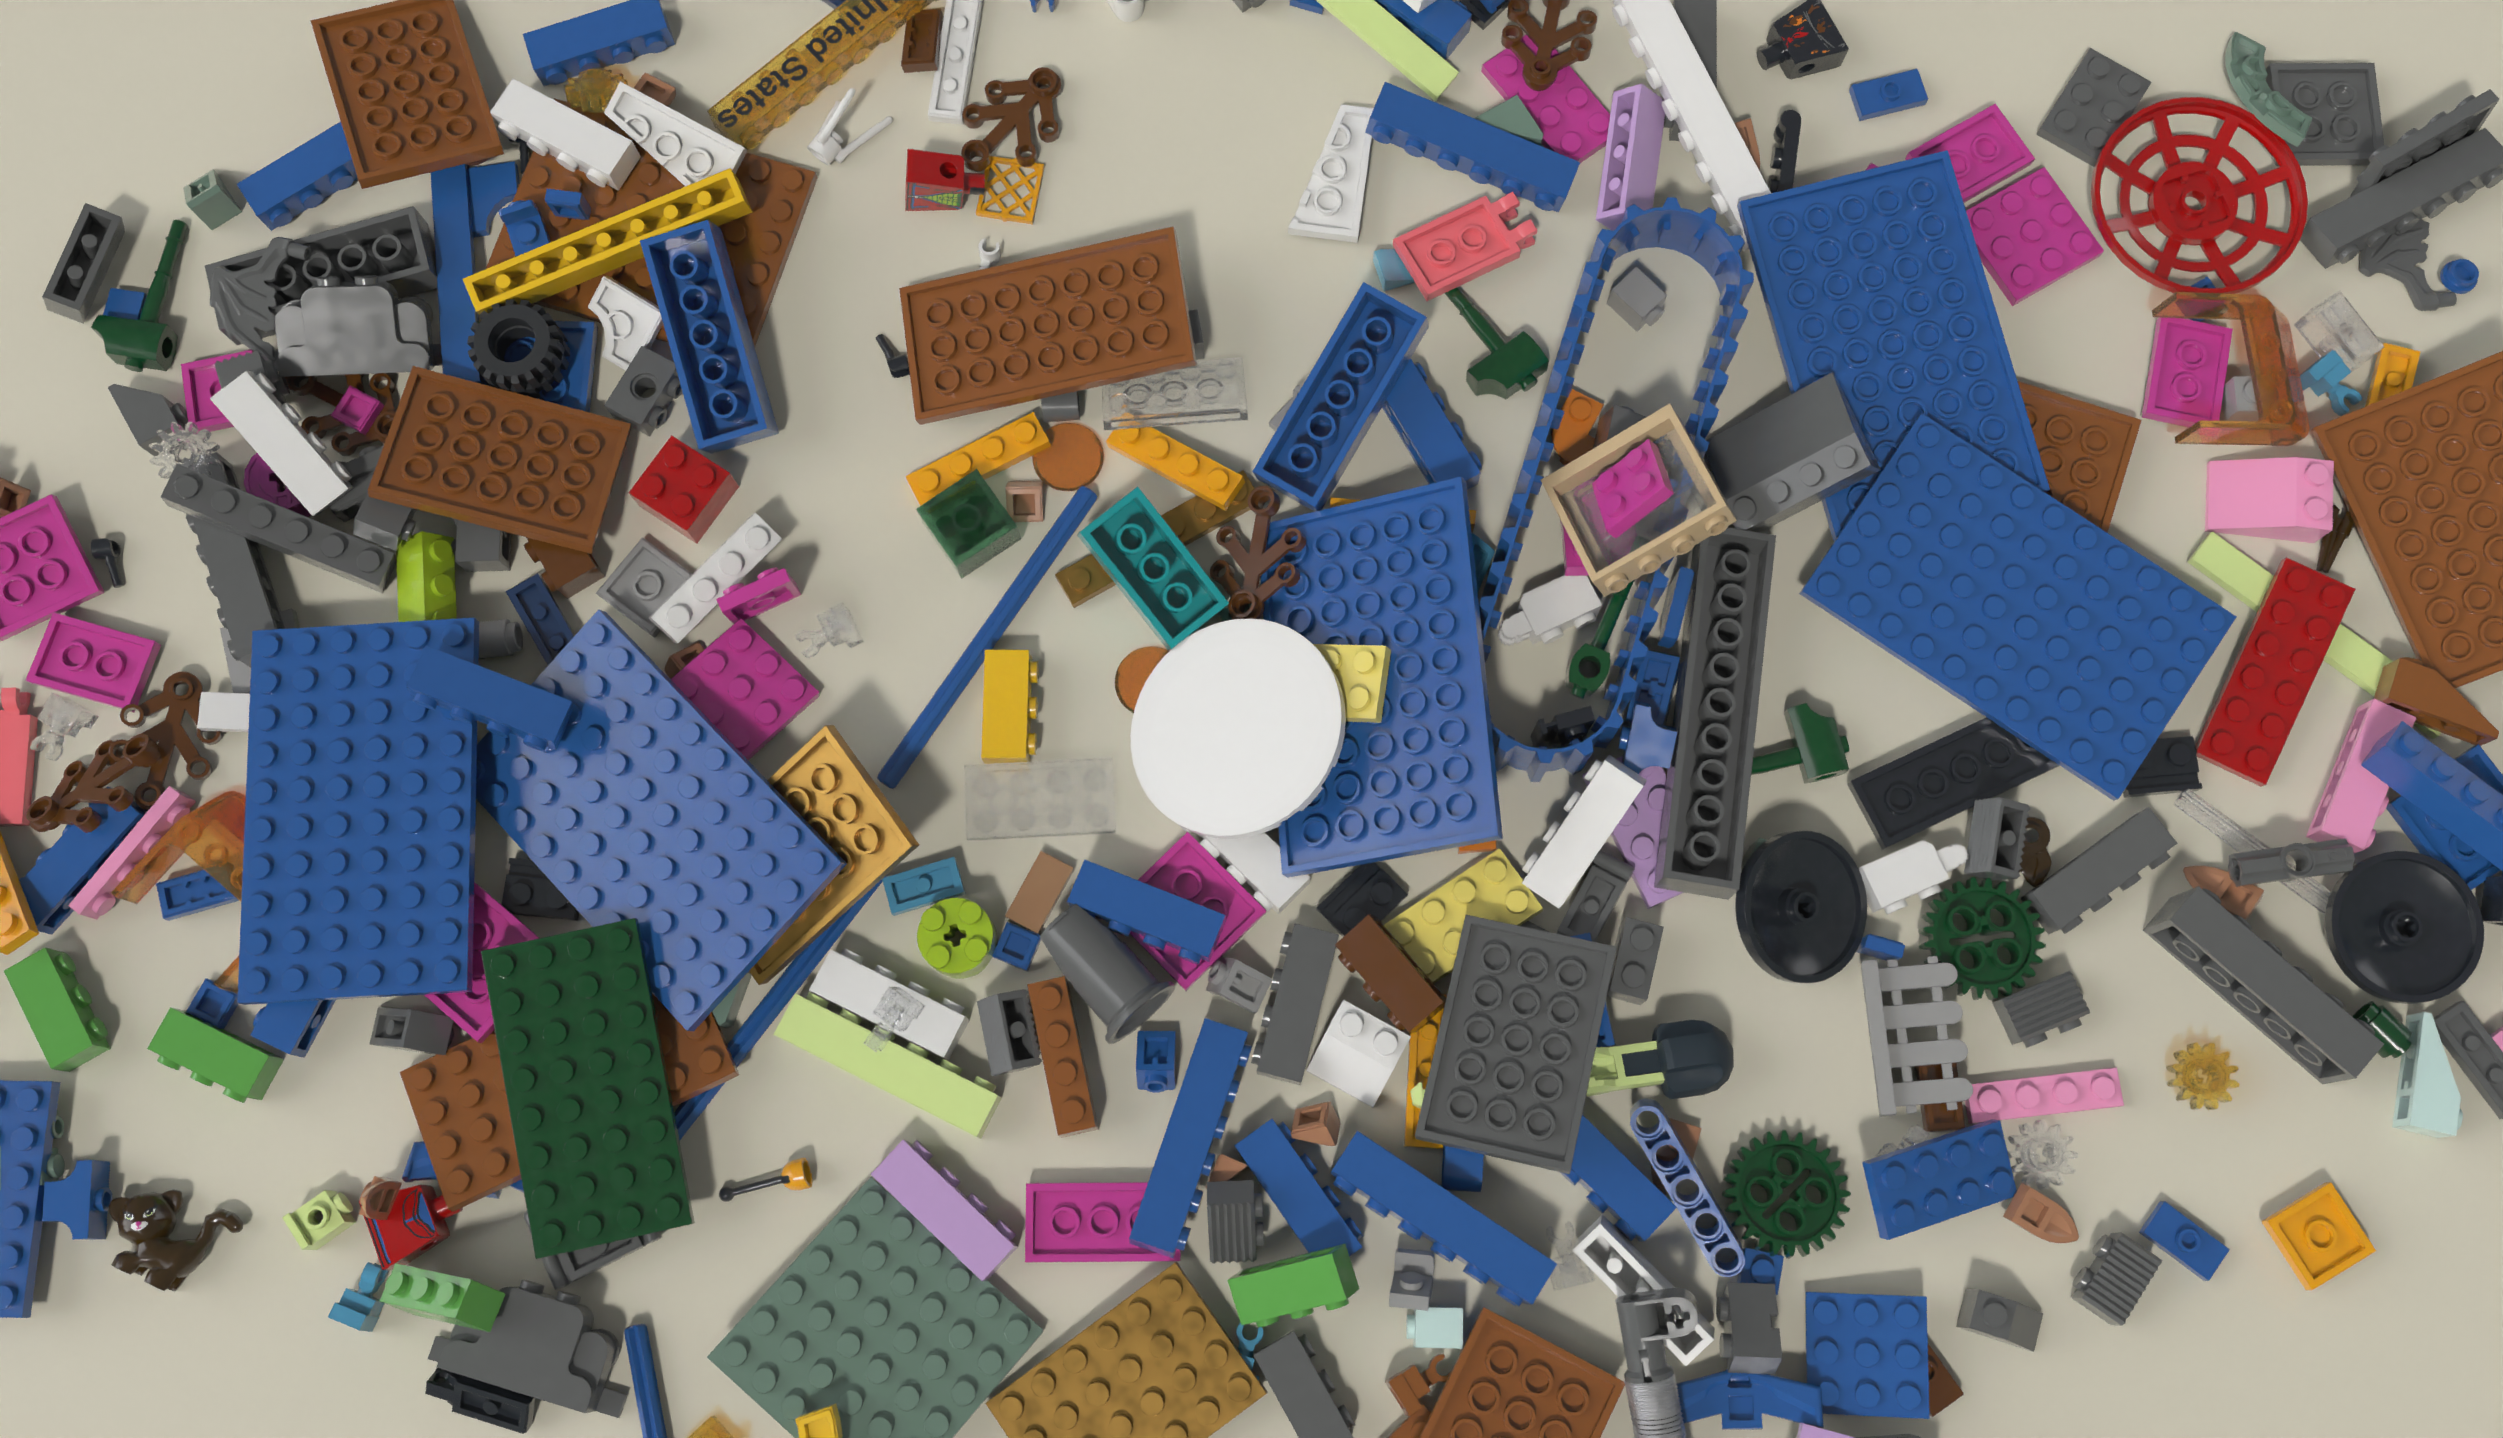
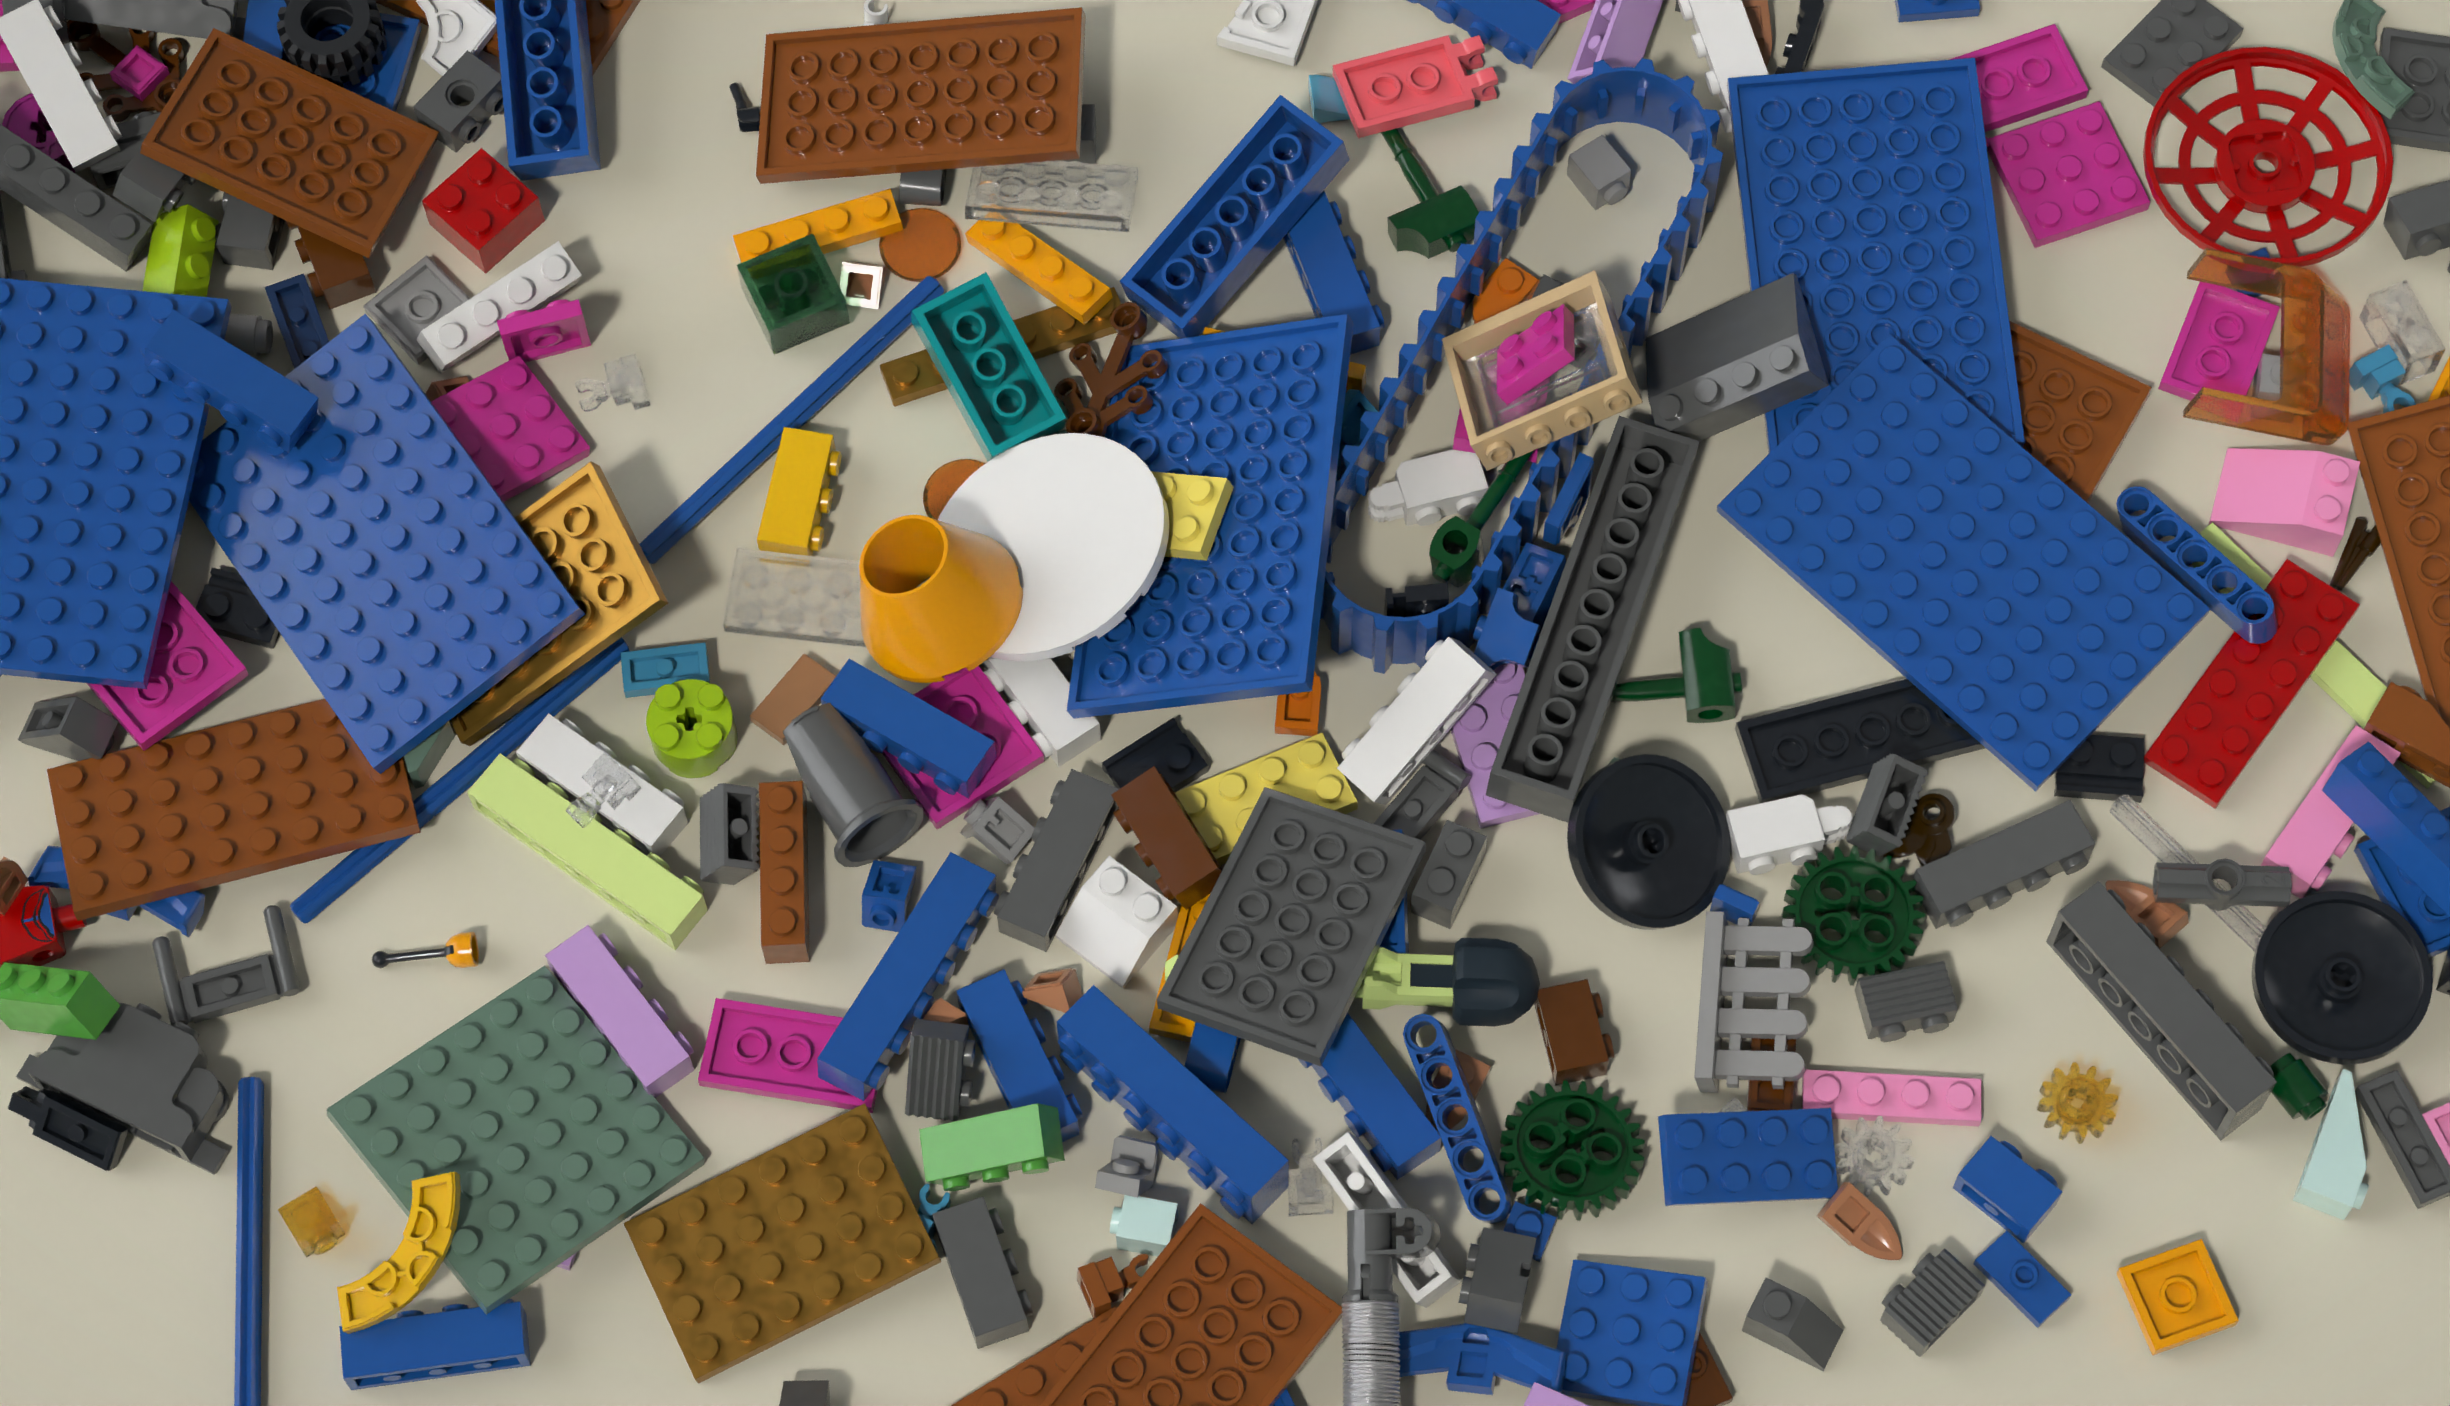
camera: 10 degrees right, 10 degrees down
(587, 1088) = (252, 809): dark green plate -> none
(1017, 946) = (757, 752): blue tile -> none
(1178, 810) = (949, 619): none -> light orange cone
(1766, 1086) = (1572, 1031): none -> reddish brown brick
(2159, 1164) = (2008, 1188): none -> blue brick
(2221, 592) = (2202, 581): none -> blue beam

